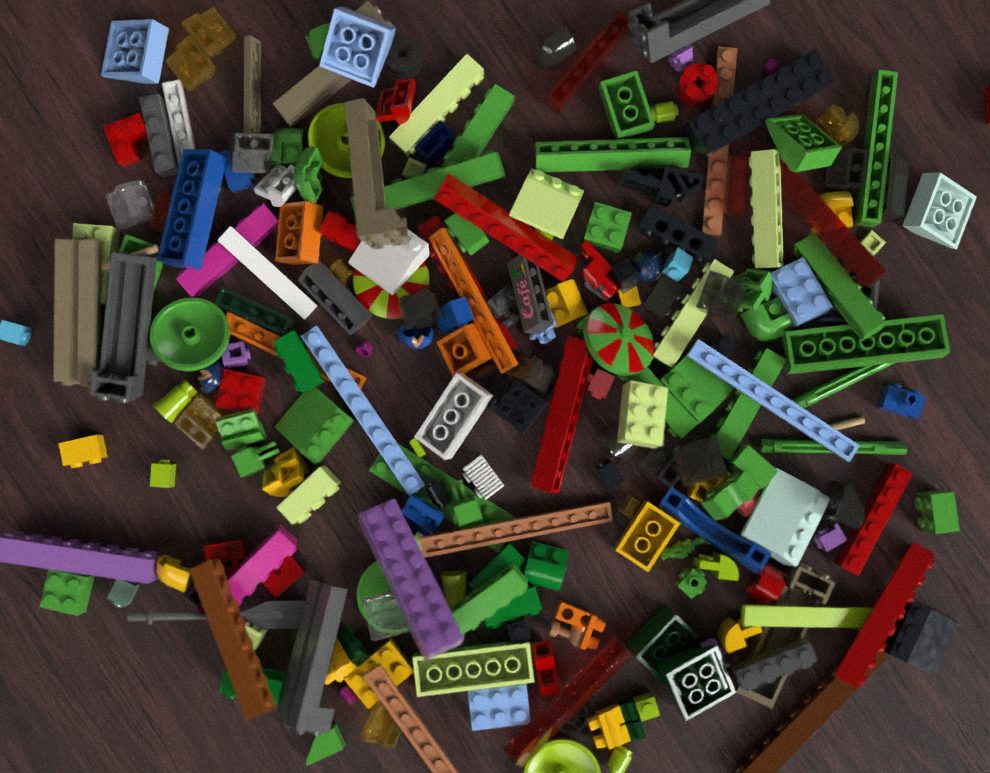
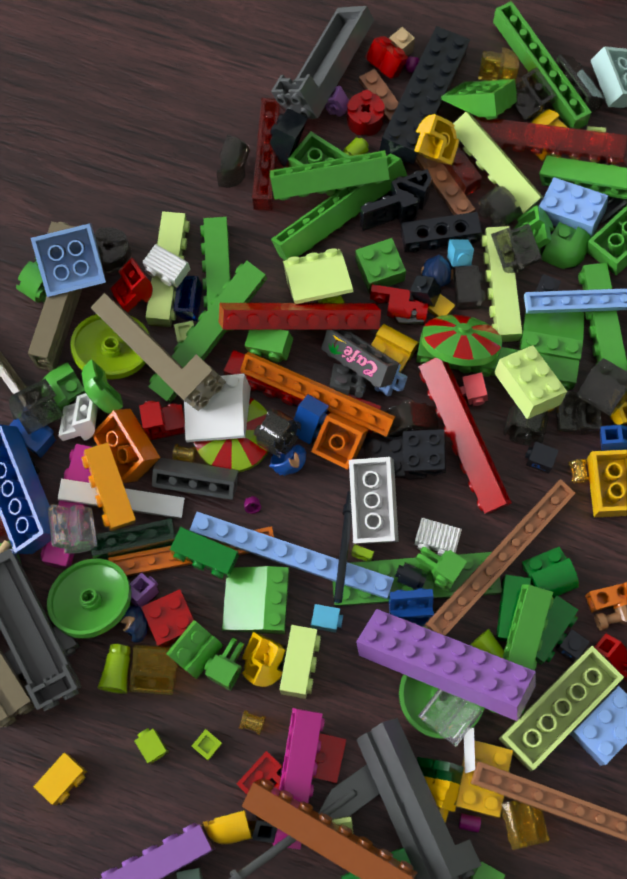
camera: 30 degrees left, 15 degrees down
(203, 502) = (207, 744): none -> lime plate
(210, 272) = (72, 528): none -> clear brick
(246, 511) = (252, 722): none -> clear yellow bush
(261, 259) = (109, 487): none -> light orange brick
(355, 476) = (326, 618): none -> medium azure brick
(381, 650) = (469, 751): none -> white sticker
(401, 439) = (341, 572): none -> black bar
(434, 106) = (166, 266): none -> white brick
(615, 59) = (287, 134): none -> black slope
(619, 124) = (329, 175): none -> bright green brick
(730, 157) = (437, 139): none -> yellow brick
(740, 249) = (499, 207): none -> clear smoke brick
(753, 45) = (386, 57): none -> red brick
(776, 42) = (403, 40): none -> tan brick

